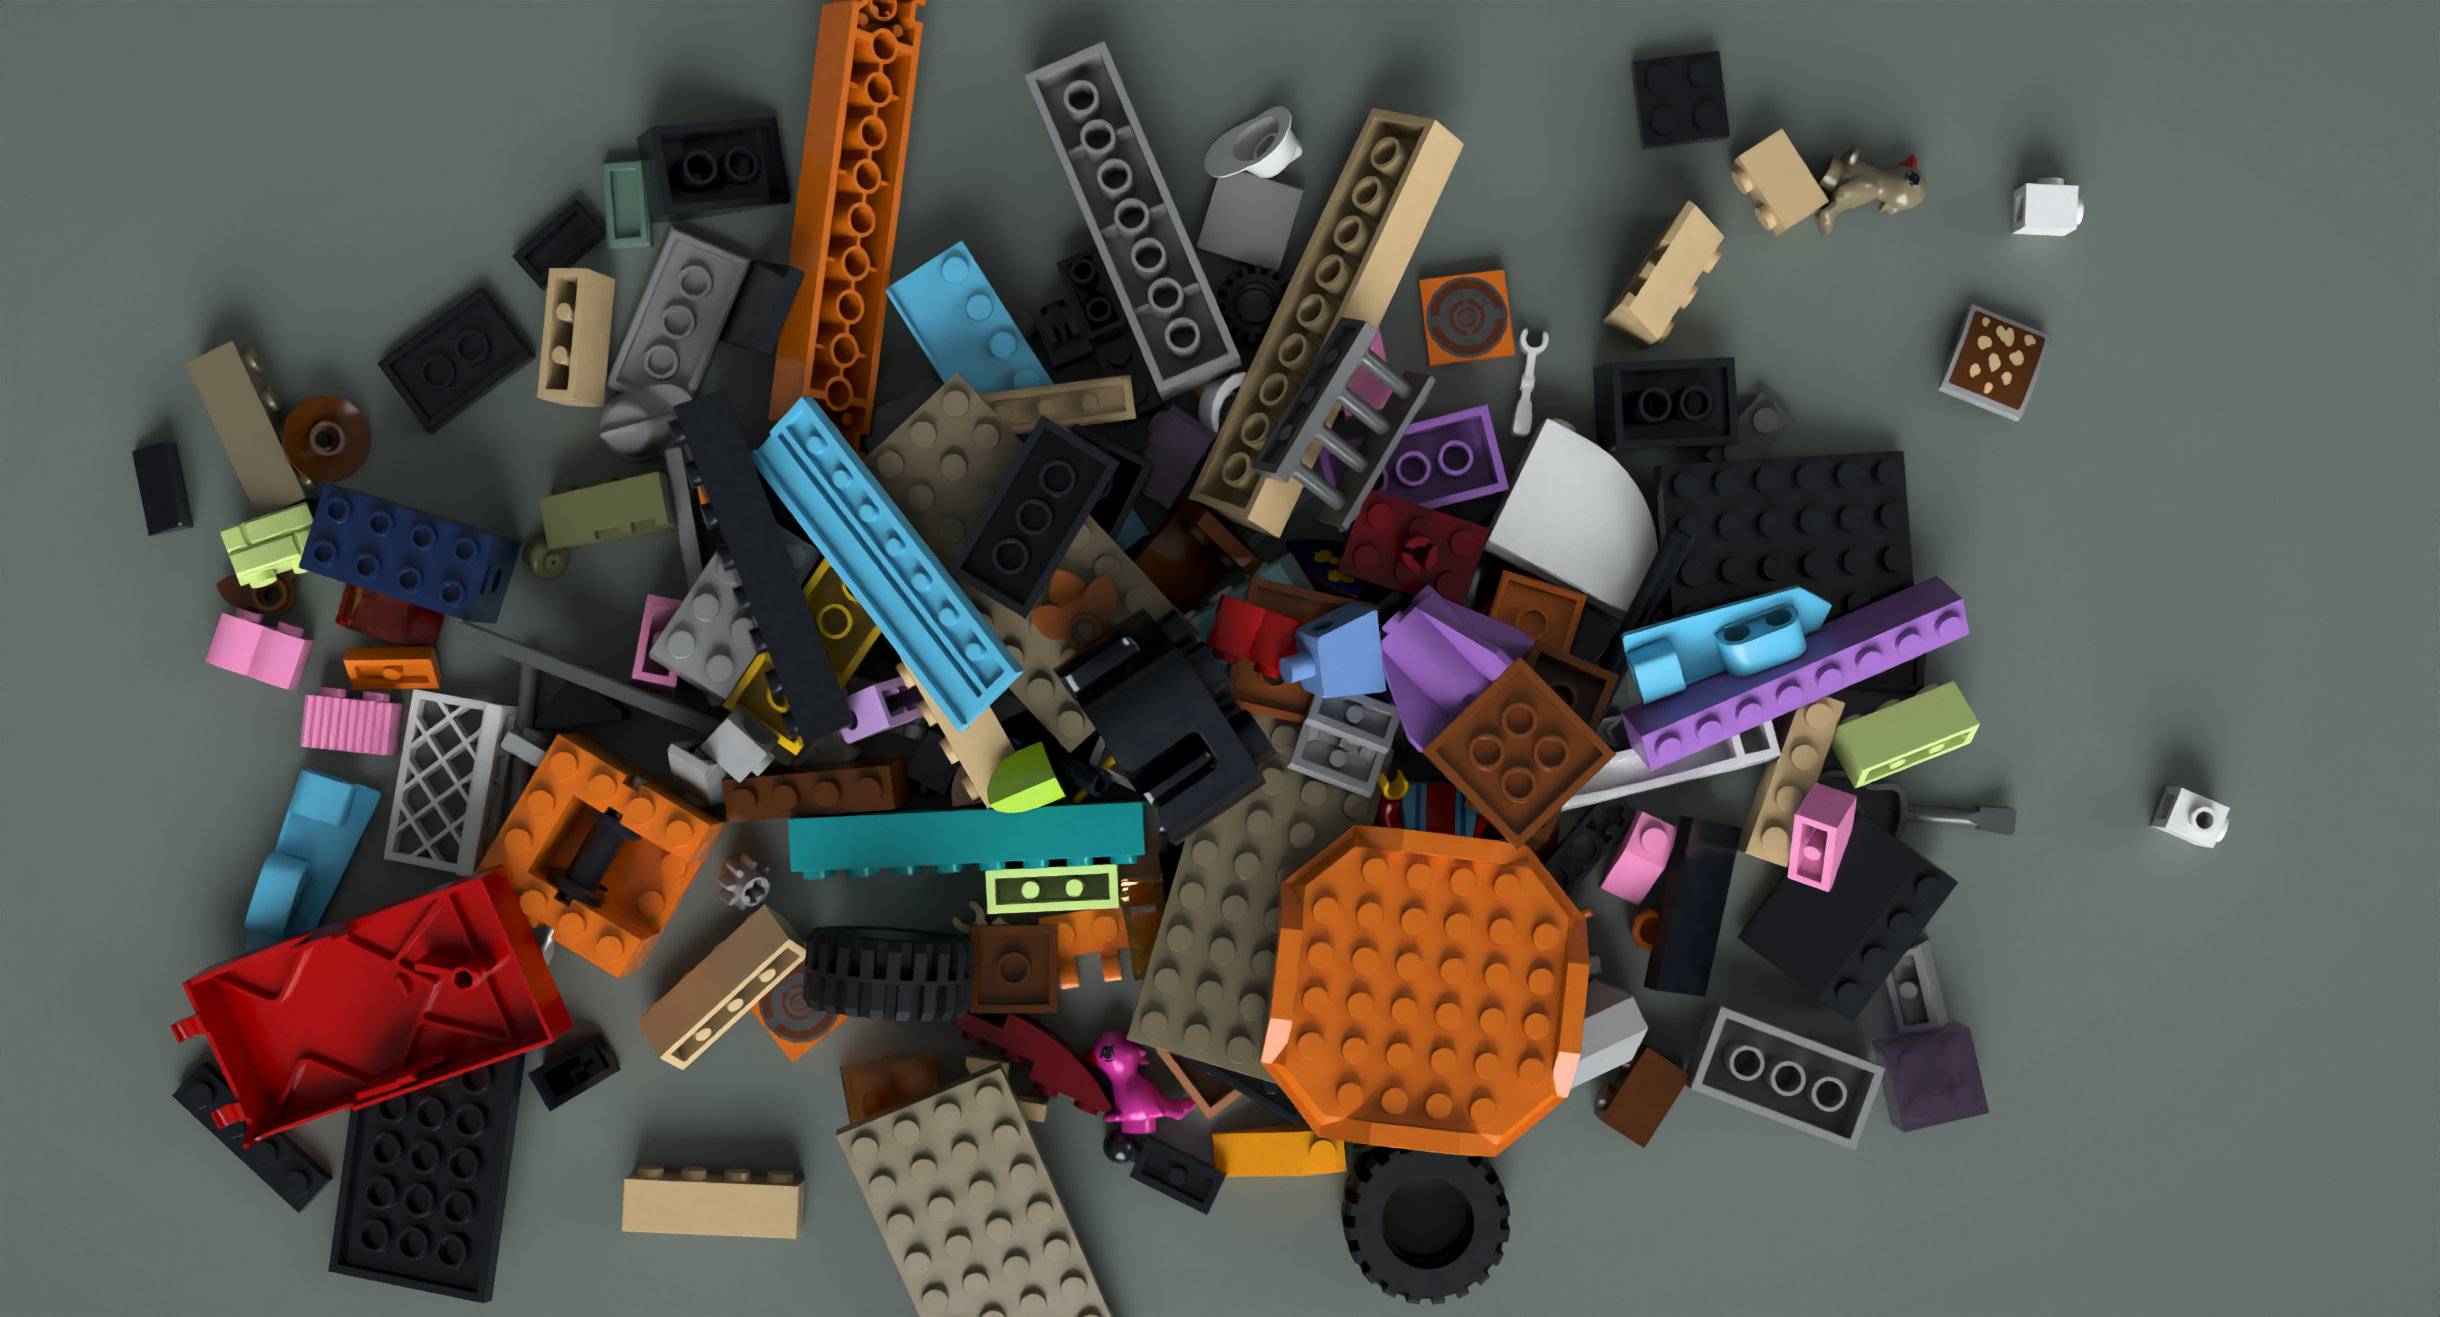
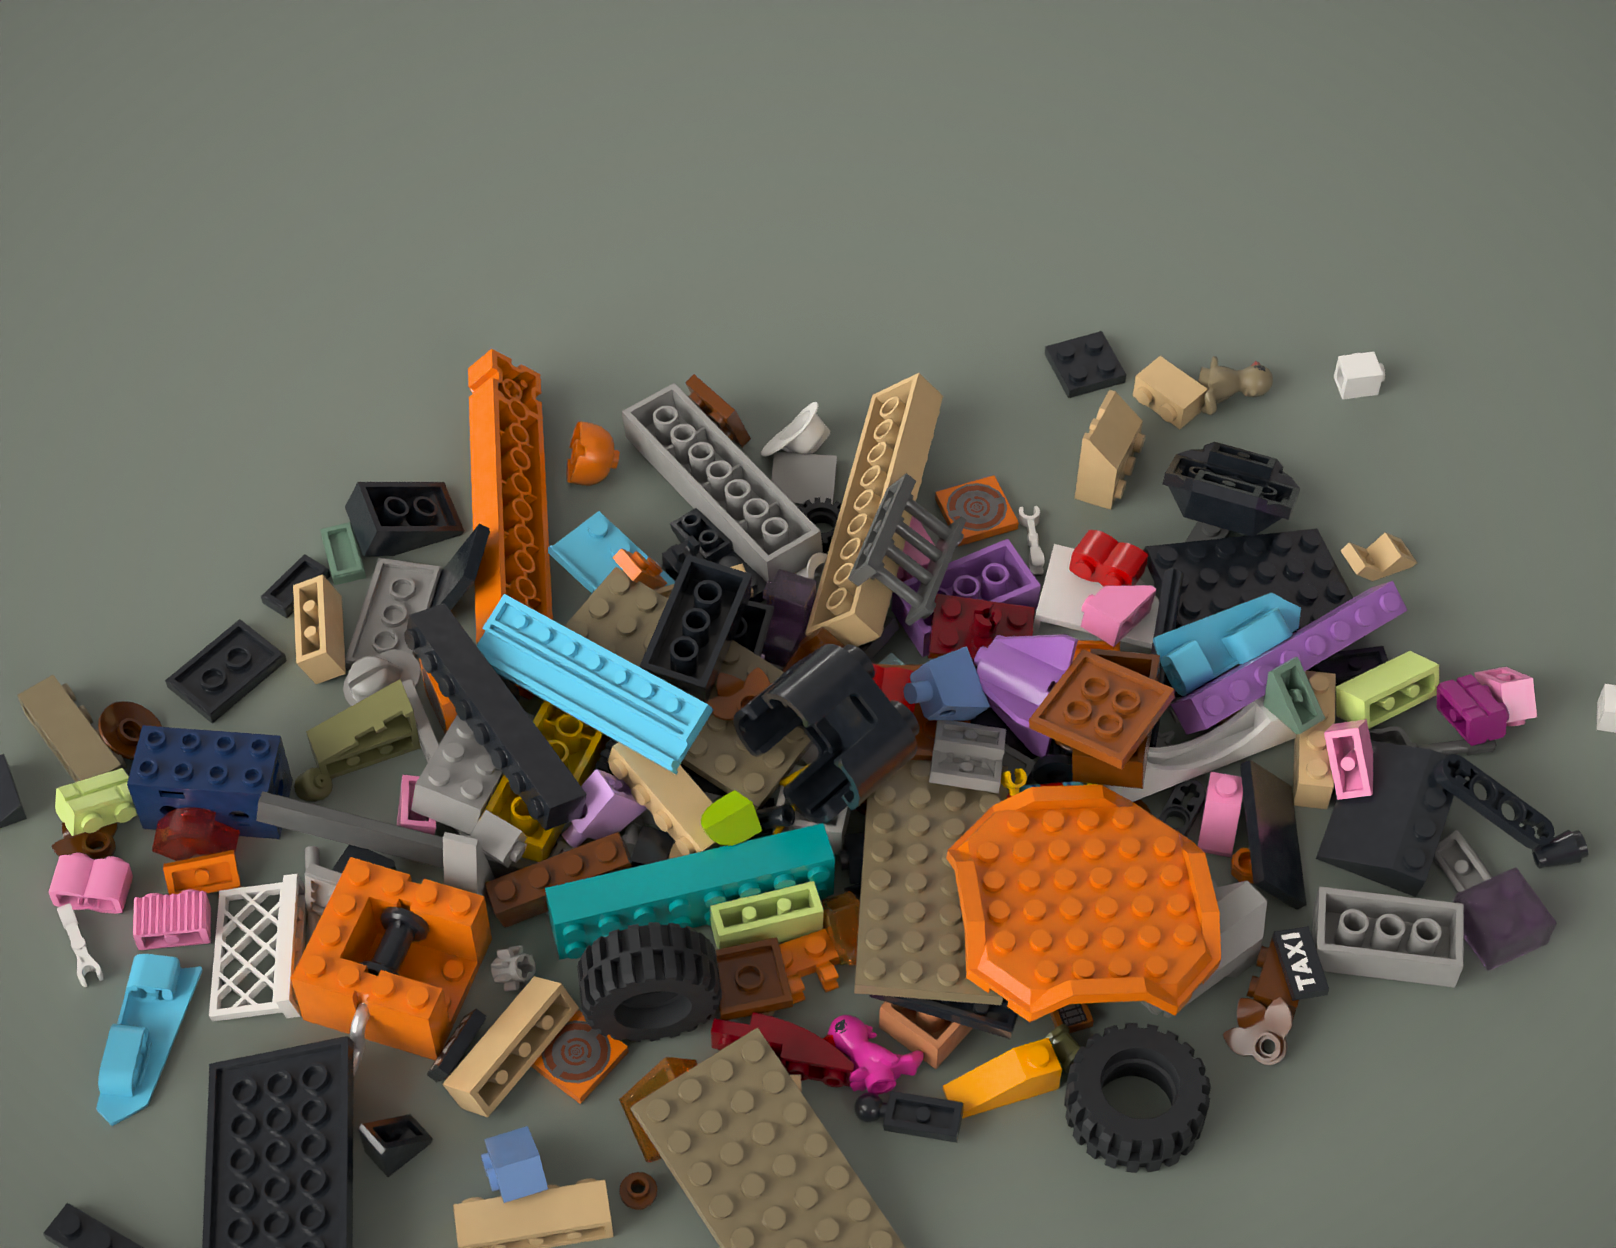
camera: 15 degrees left, 35 degrees down
(231, 690) = (85, 962): none -> white piece
(375, 1005) = (220, 1095): red piece -> none
(662, 966) = (456, 1045): none -> black tile
(699, 1146) = (514, 1165): none -> medium blue brick
(841, 1176) = (638, 1200): none -> reddish brown plate
(973, 126) = (591, 454): none -> orange cylinder
(990, 372) = (640, 569): none -> orange plate
(1161, 104) = (717, 410): none -> reddish brown plate
(1590, 565) = (1116, 611): none -> bright pink slope
(1595, 1151) = (1256, 1026): none -> plate
(1605, 477) = (1107, 561): none -> red brick
(1665, 1099) = (1300, 963): none -> black tile
(1666, 404) = (1137, 518): black slope -> none
(1775, 753) = (1292, 697): none -> sand green slope
(1809, 379) = (1231, 488): none -> black piece
(1968, 514) = (1380, 559): none -> tan slope
(1973, 942) = (1492, 806): none -> black beam
(1994, 363) = (1360, 467): slope -> none
(2001, 784) = (1472, 709): none -> magenta brick
(2037, 995) = (1562, 850): none -> black cone
(2055, 761) = (1512, 689): none -> bright pink slope

